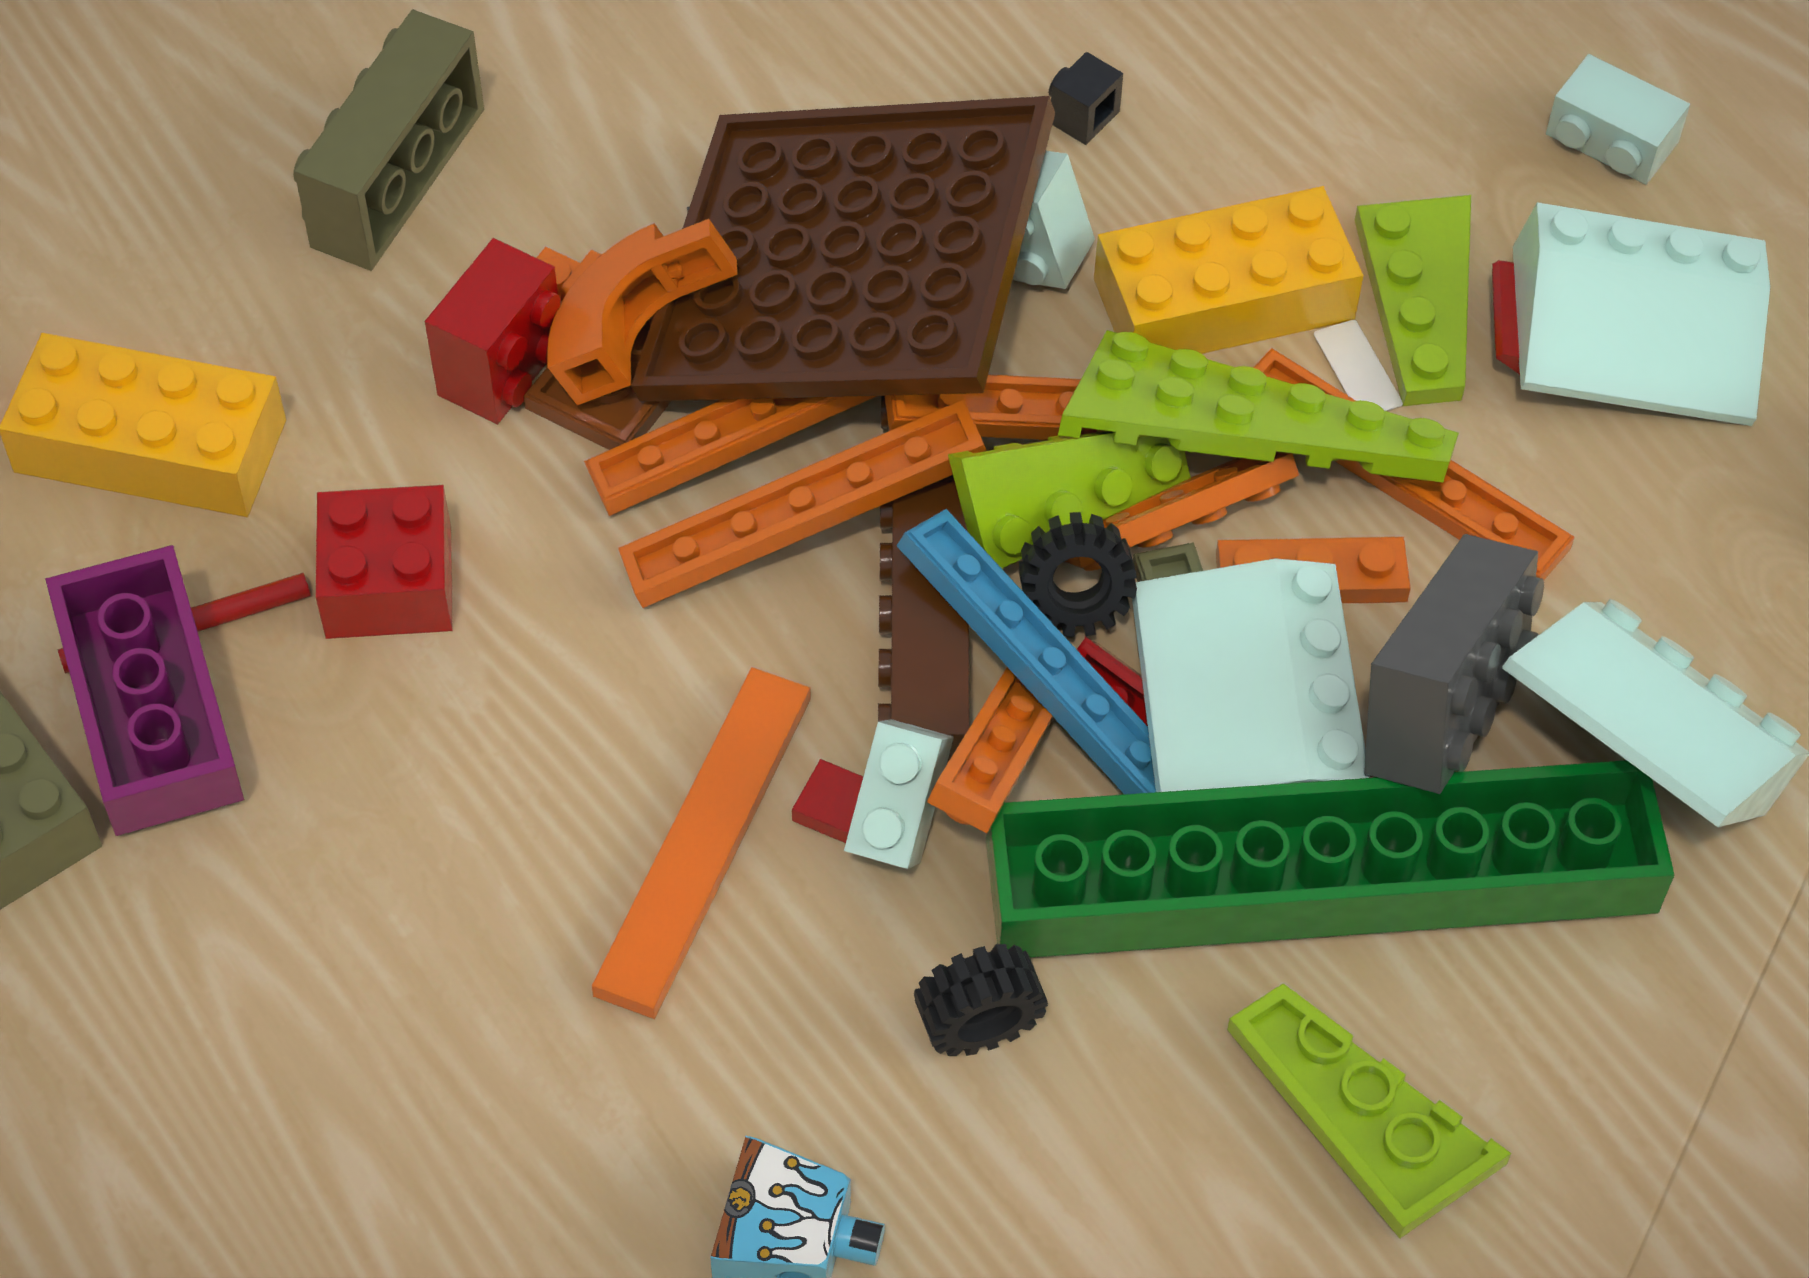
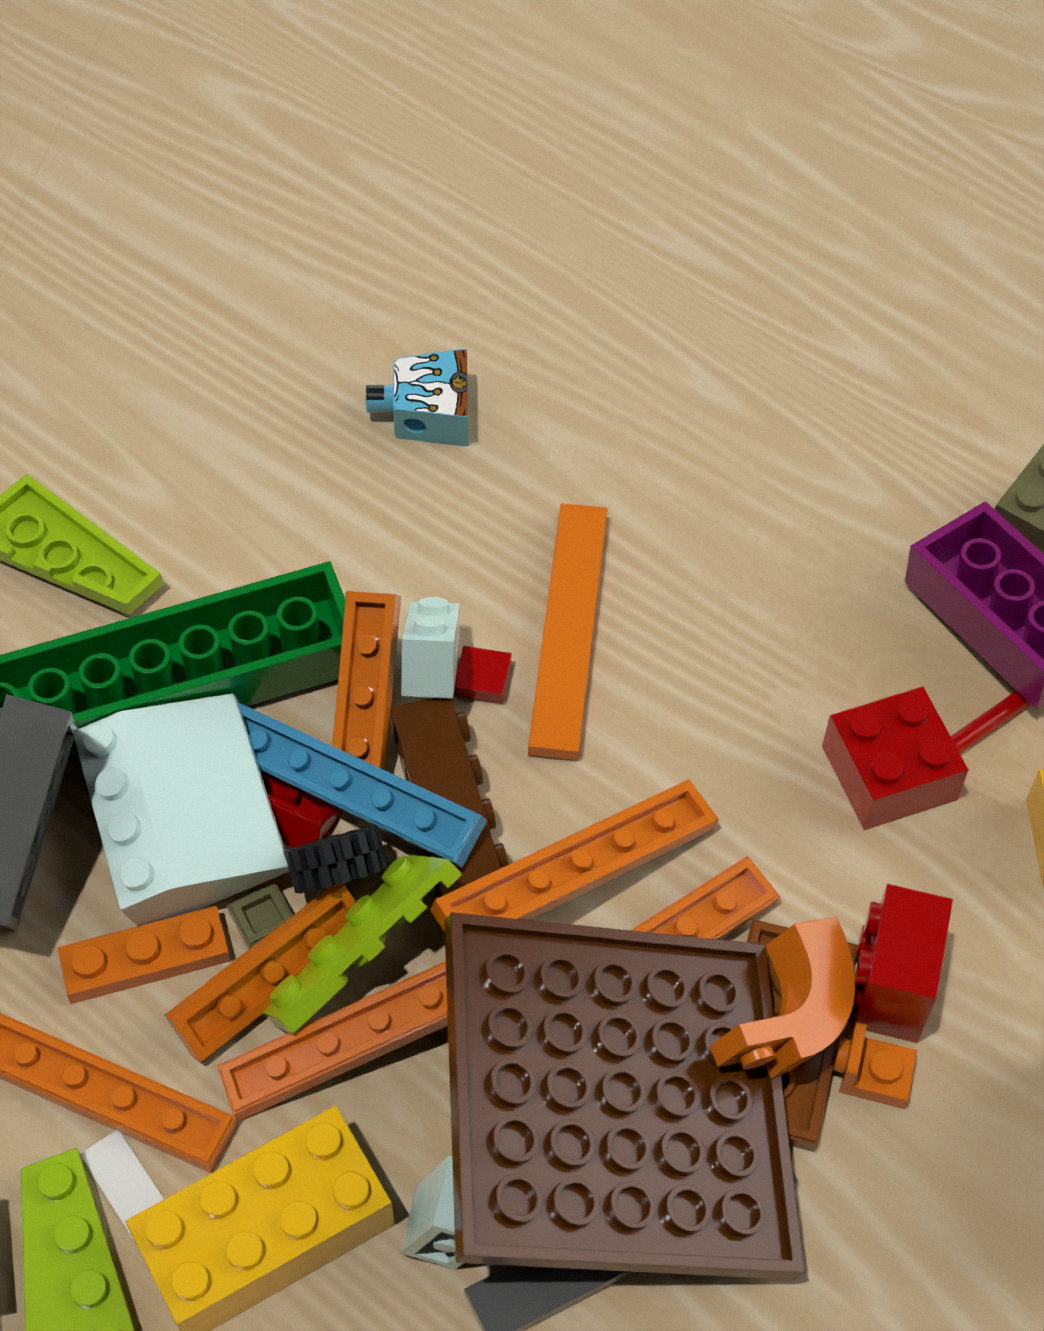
camera: 165 degrees right, 0 degrees up
(980, 1000) = (336, 530): black tyre -> none
(1243, 413) = (252, 1040): lime wing -> none

